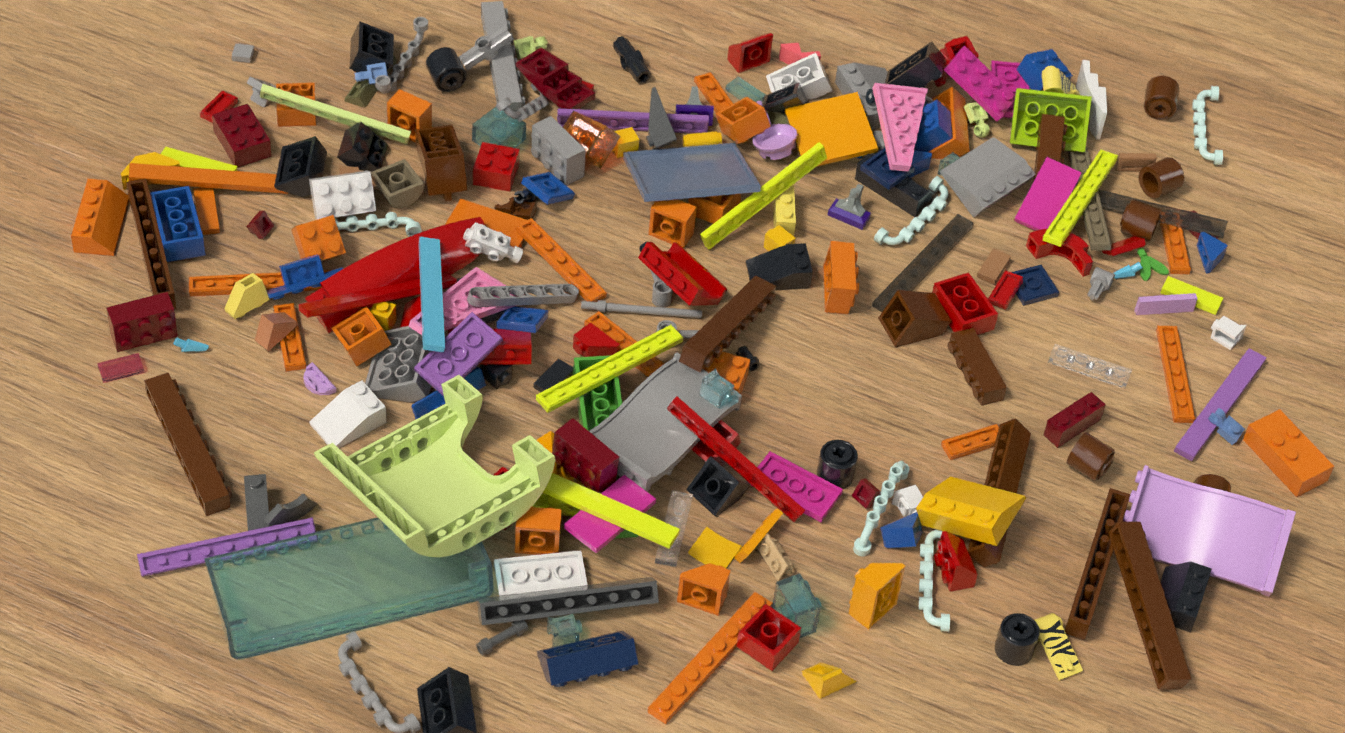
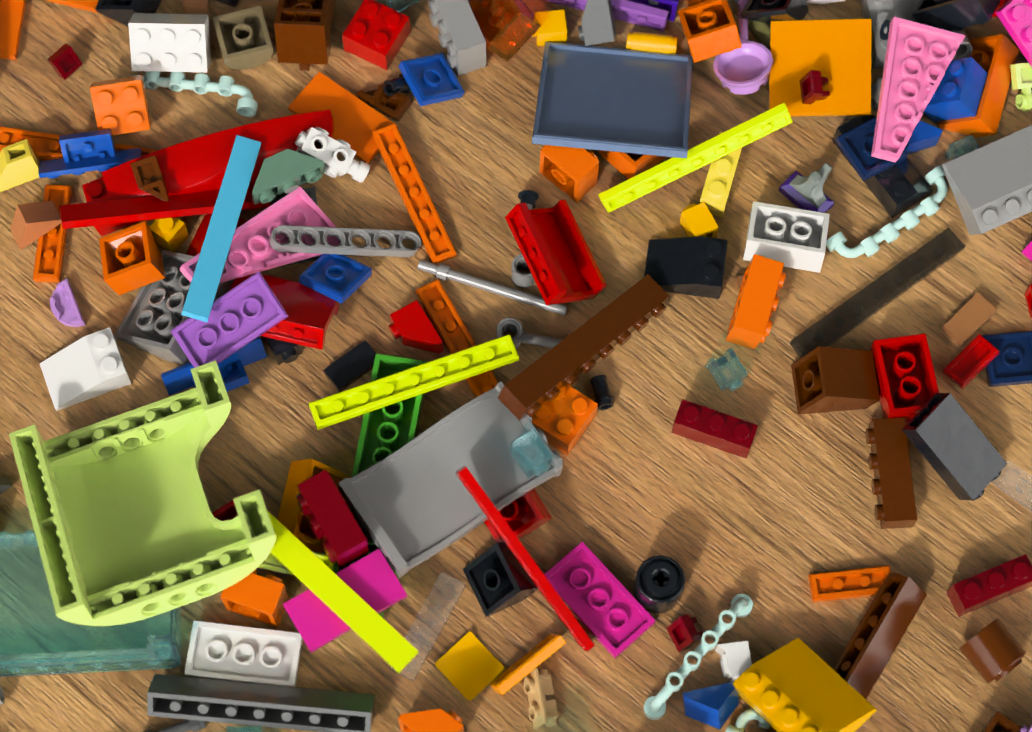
camera: 20 degrees right, 20 degrees up
(362, 276) = (150, 177): none -> reddish brown slope
(465, 256) = (284, 174): none -> sand green slope
(831, 139) = (812, 87): none -> dark red tile
(835, 327) = (727, 371): none -> clear light blue window
(839, 363) = (714, 428): none -> dark red brick
(847, 228) = (787, 236): none -> white brick
(1016, 336) = (954, 446): none -> brick

